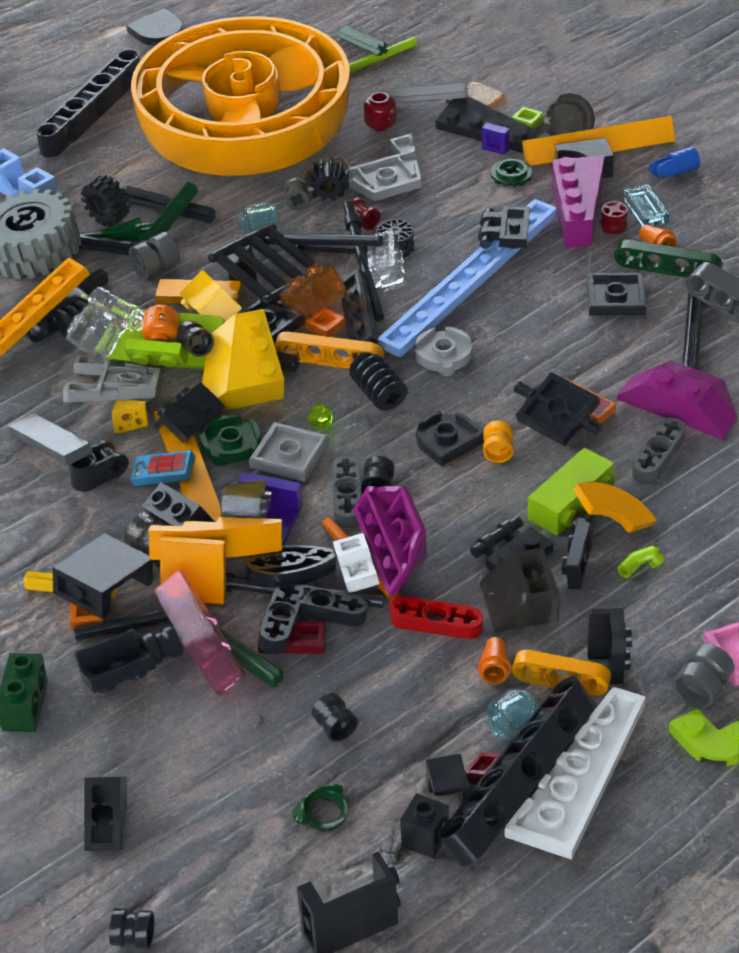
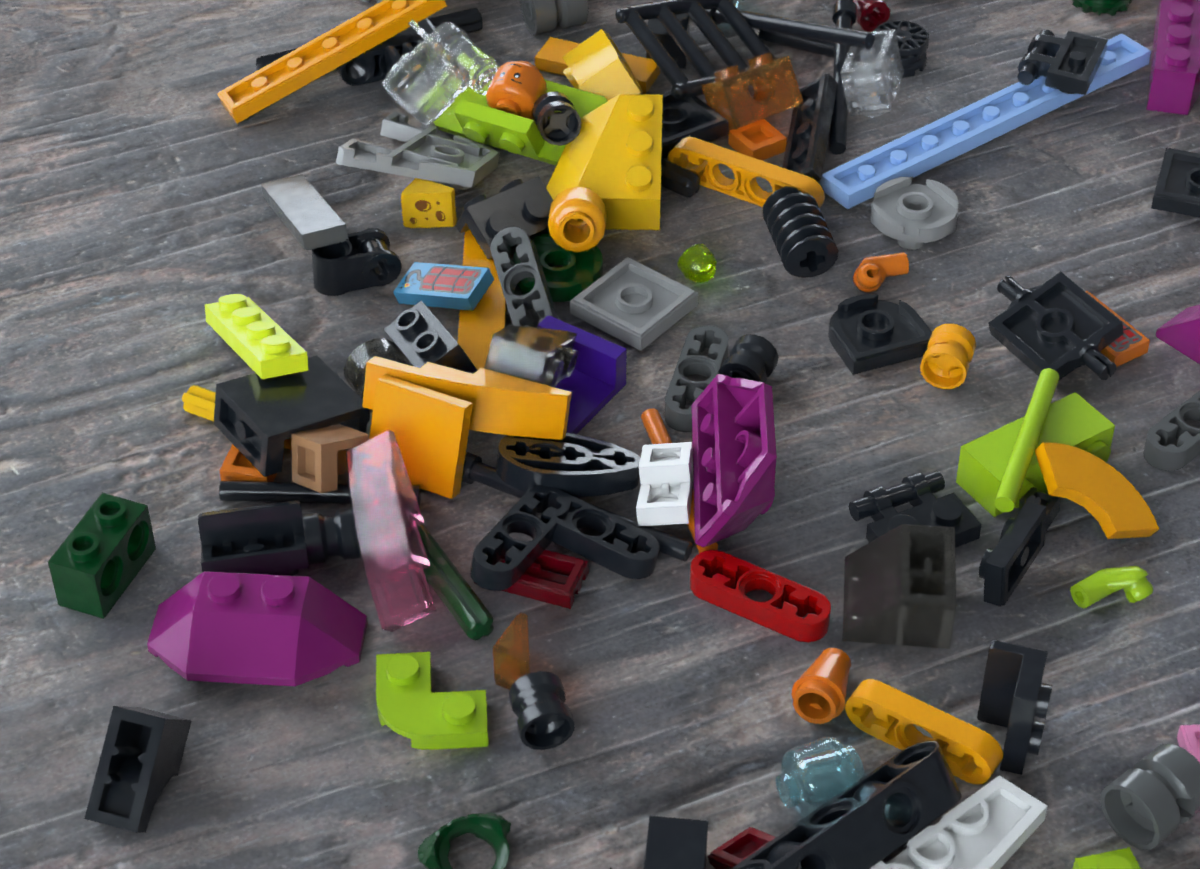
camera: 15 degrees right, 0 degrees up
(58, 530) = (255, 337): none -> neon yellow plate
(134, 598) = (321, 455): none -> medium nougat panel
(137, 714) = (256, 630): none -> magenta wedge
(205, 451) = (511, 273): none -> dark grey beam
(236, 405) = (577, 219): none -> light orange head
(267, 739) = (426, 717): none -> lime plate
(305, 689) = (512, 653): none -> clear orange slope
(431, 395) = (875, 269): none -> orange arm
(566, 484) = (1026, 441): none -> lime bar

